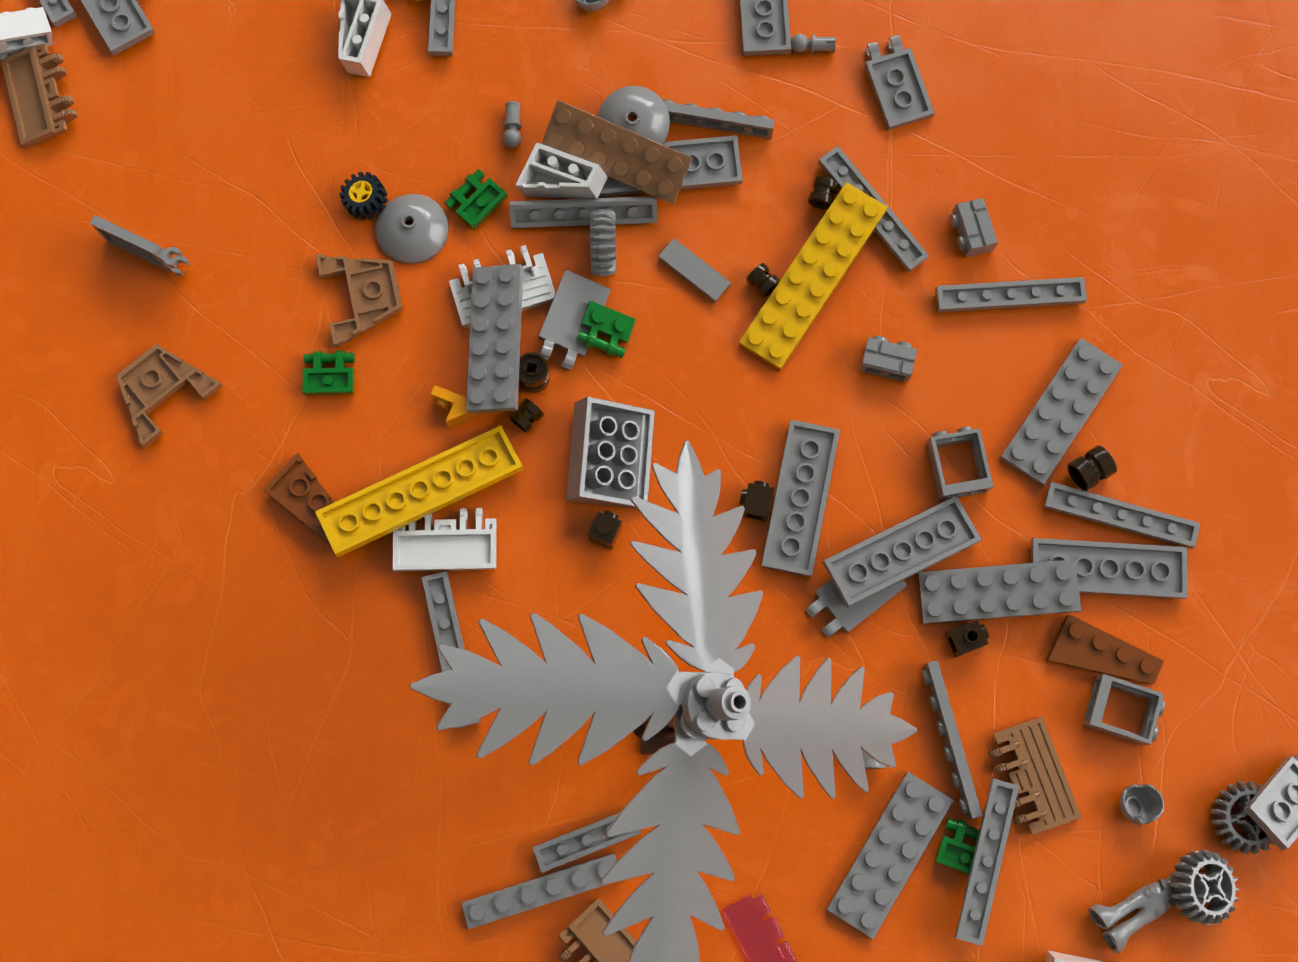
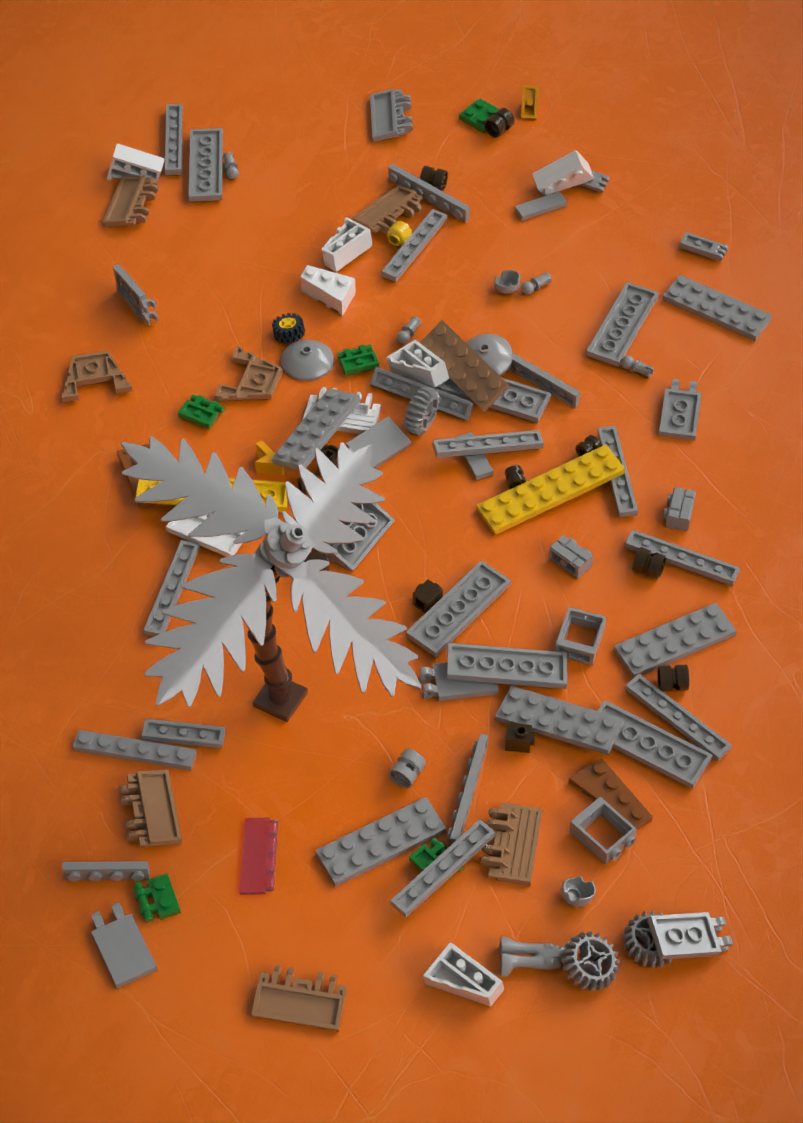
camera: 30 degrees right, 25 degrees down
(377, 109) = (328, 287): none -> white wedge
(609, 323) = (396, 457): green plate -> none
(705, 250) = (487, 444): none -> light grey plate
(981, 323) = (649, 562): none -> dark brown wheel

